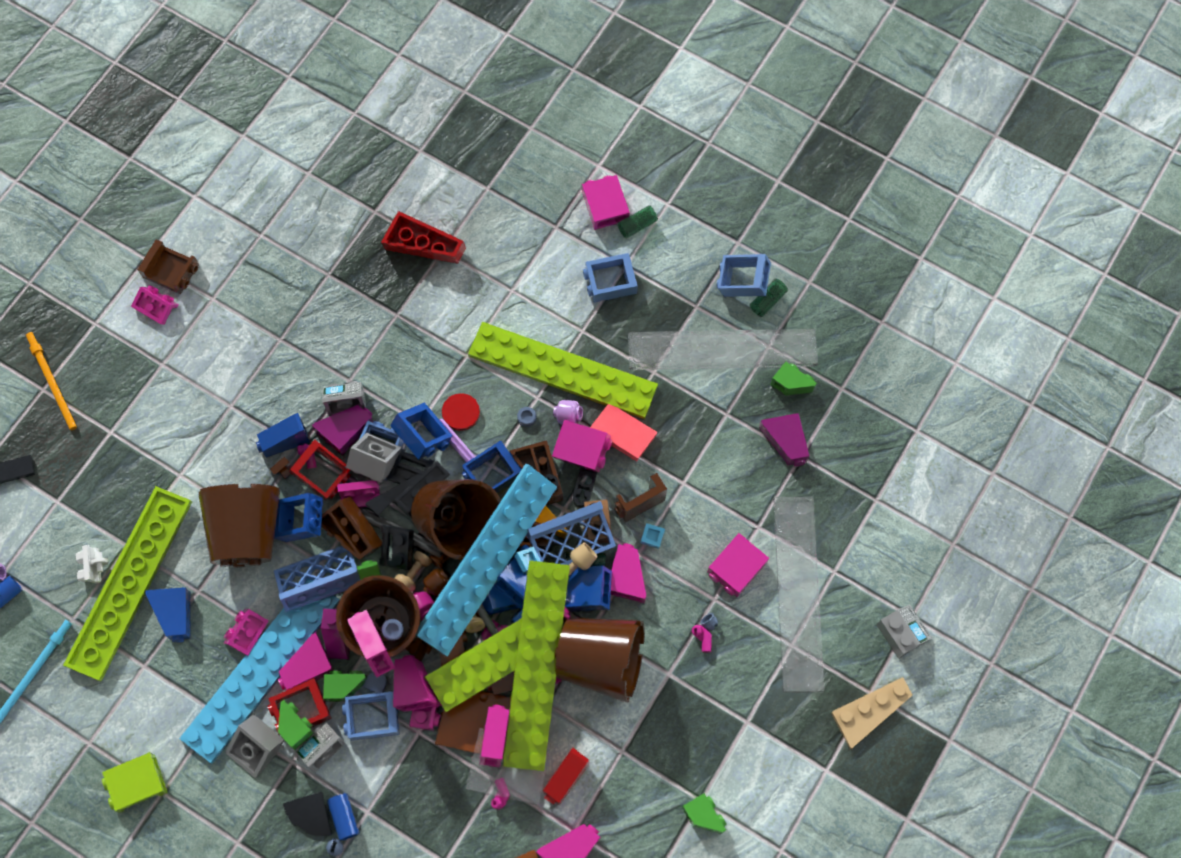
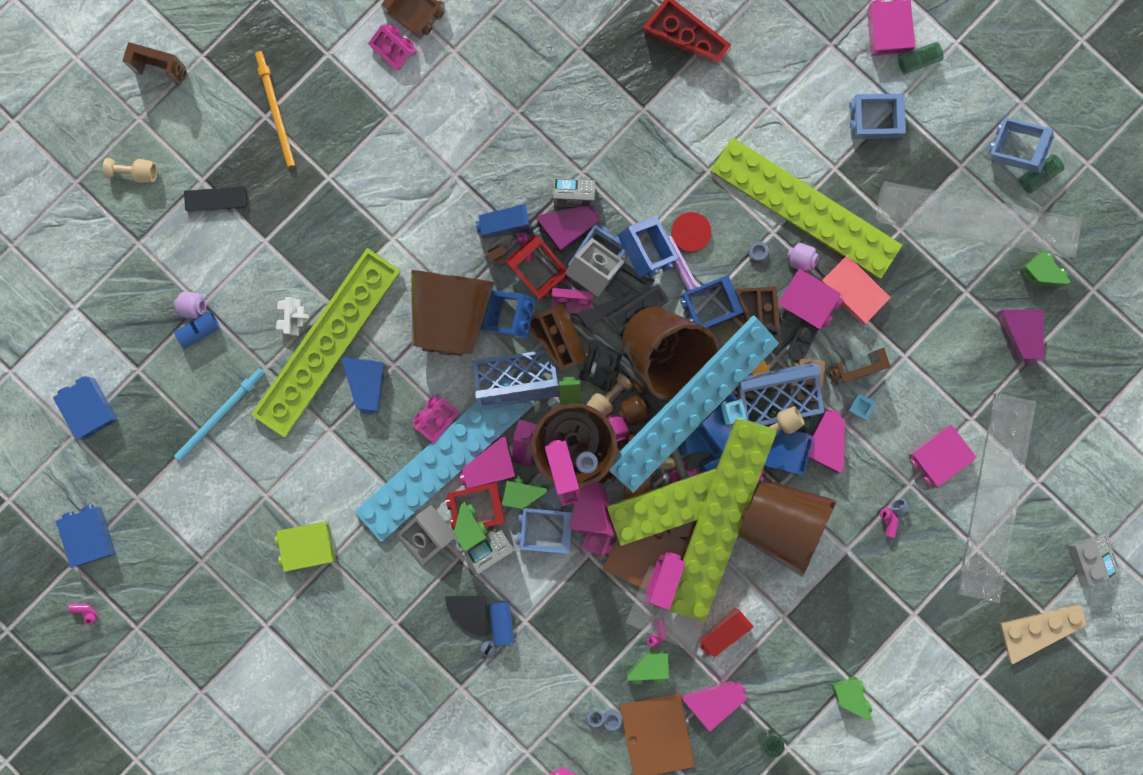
camera: 15 degrees right, 15 degrees up
(499, 828) = (650, 667): none -> bright green slope

